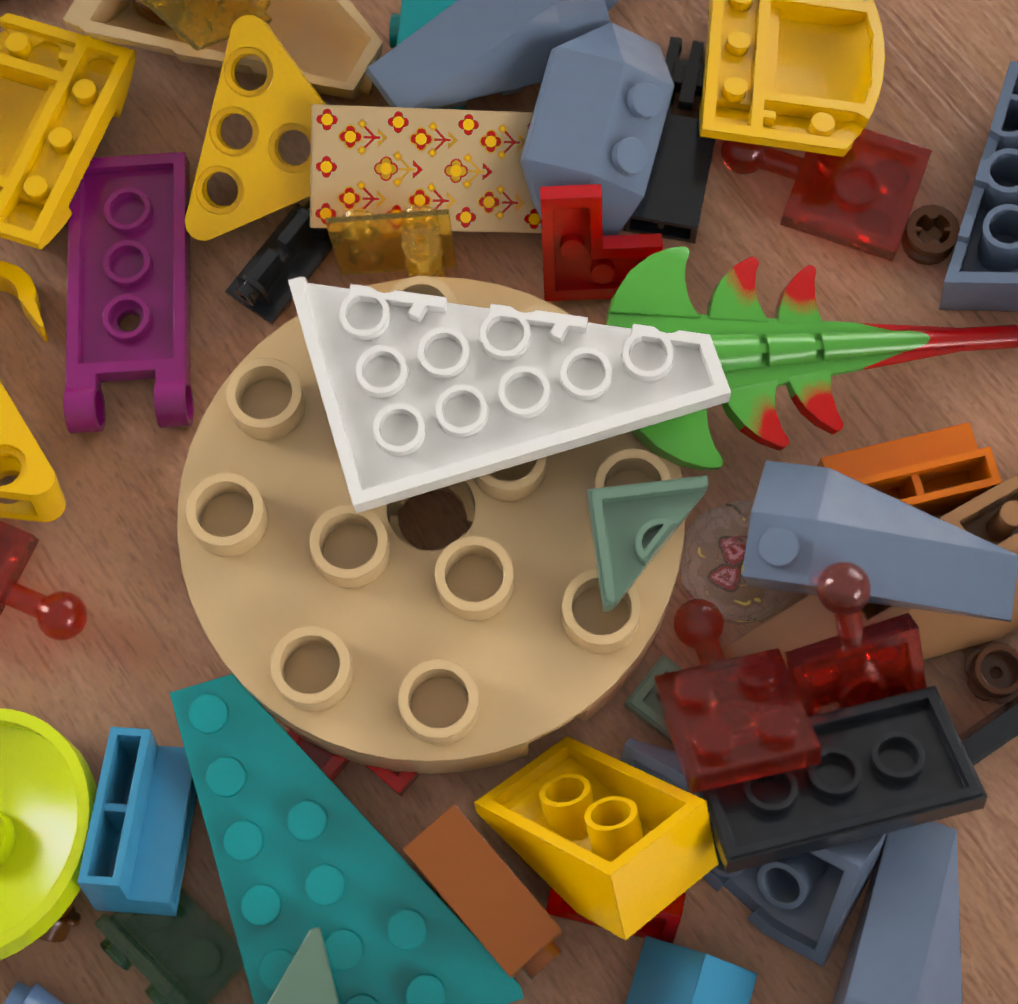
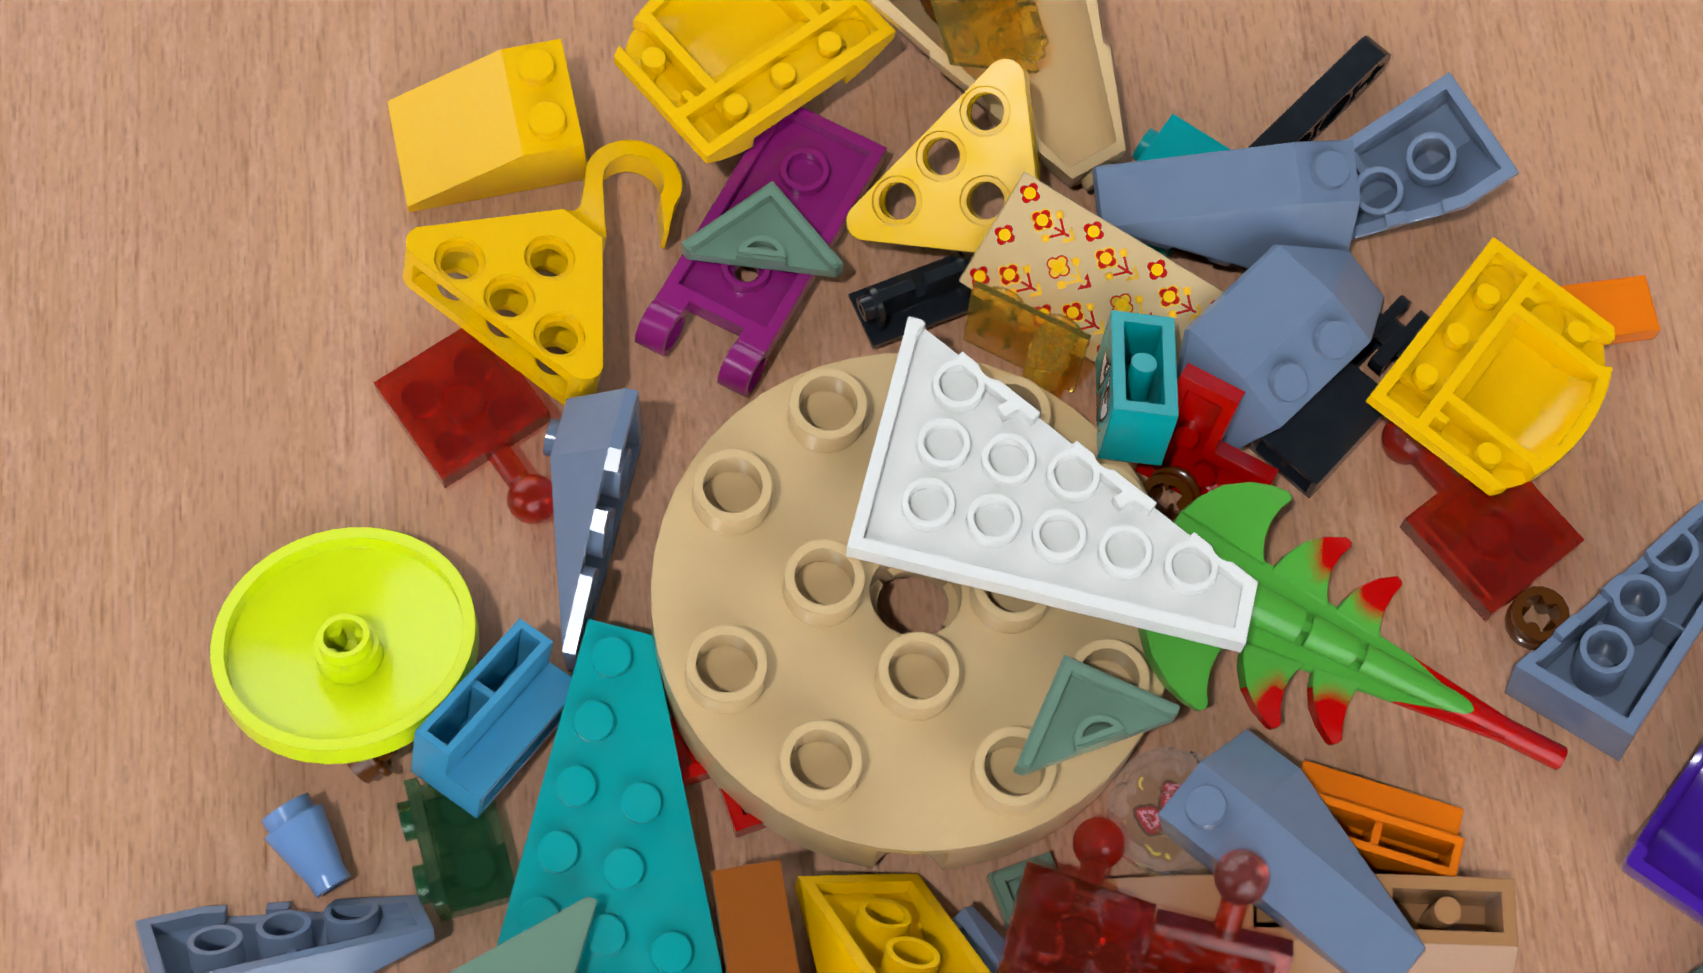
camera: 20 degrees right, 5 degrees down
(99, 565) = (591, 476): none -> sand blue wedge
(126, 281) = (764, 234): none -> sand green tile
(510, 231) = (1136, 388): none -> teal brick
(586, 287) = (1176, 477): none -> reddish brown bush

